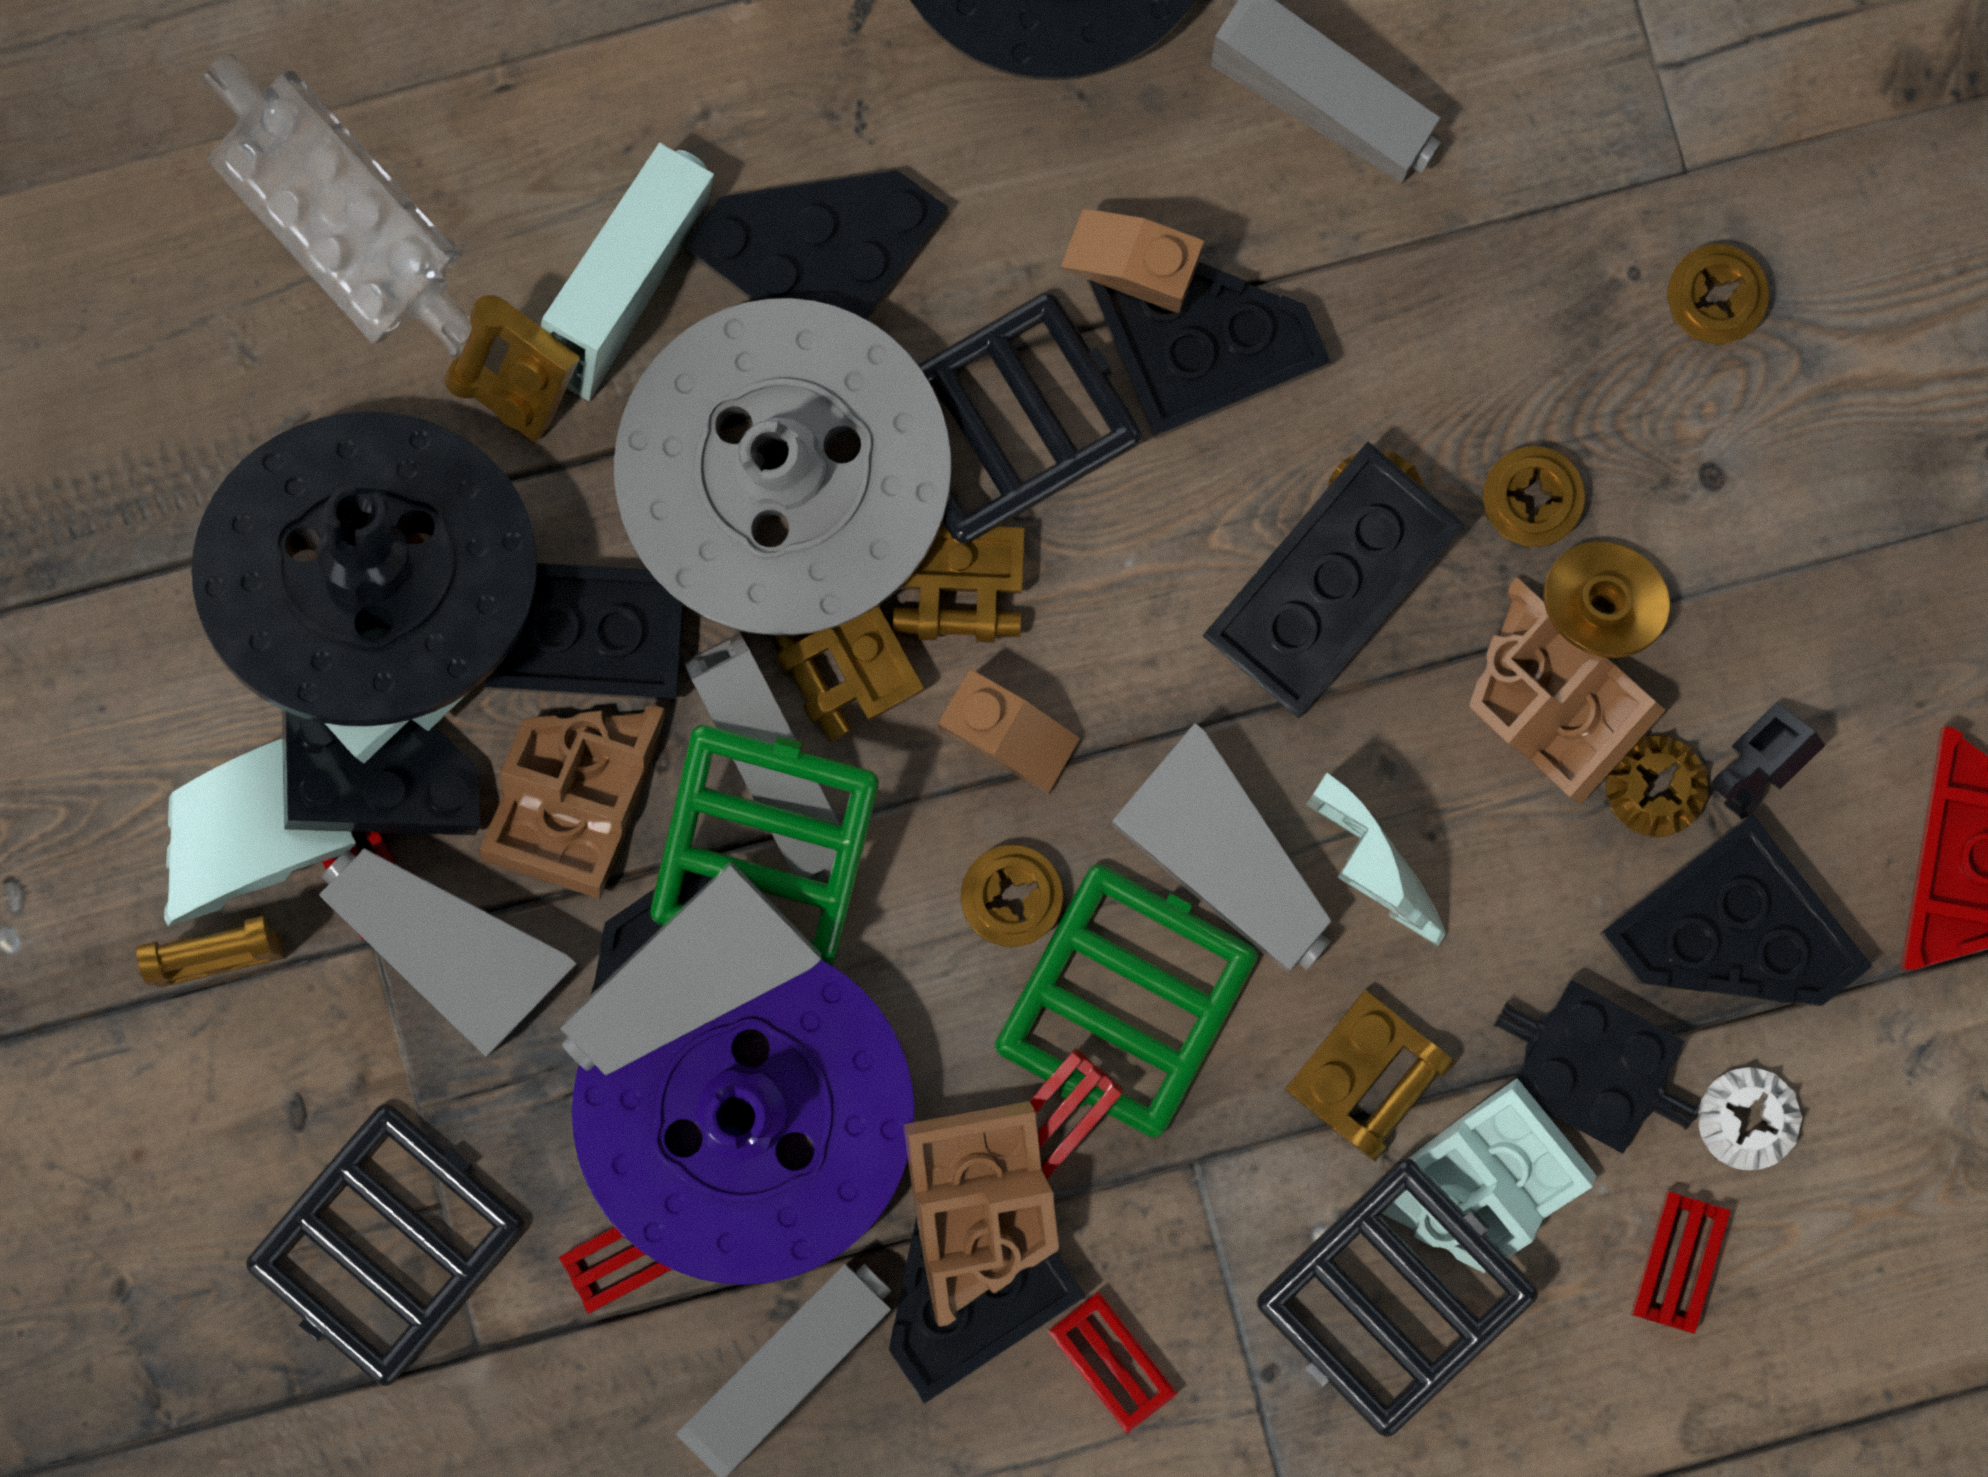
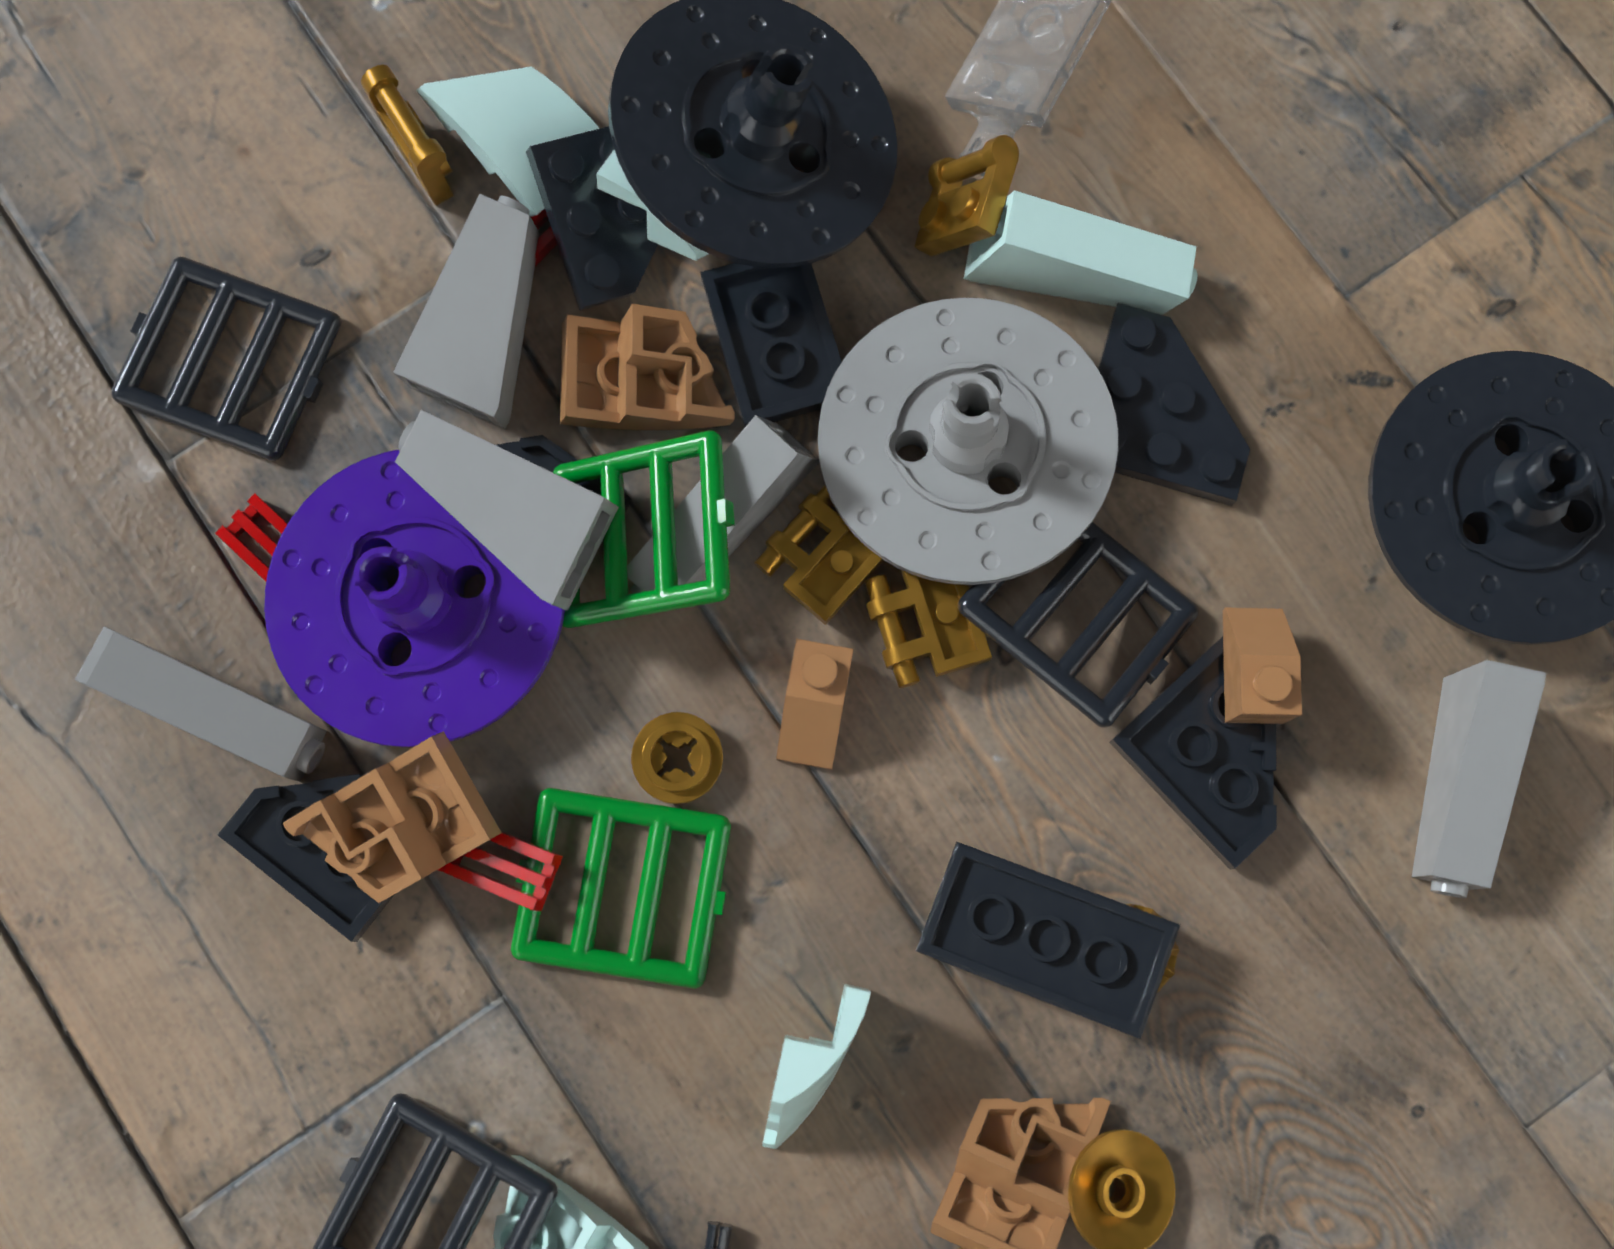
camera: 70 degrees right, 5 degrees down
(1079, 1319) = (336, 943): red tile -> none
(1219, 848) = (777, 921): light grey slope -> none
(1353, 1060) = (635, 1105): pearl gold plate -> none
(1556, 478) = (1210, 1107): pearl gold gear -> none
(1723, 266) = (1458, 1190): pearl gold gear -> none

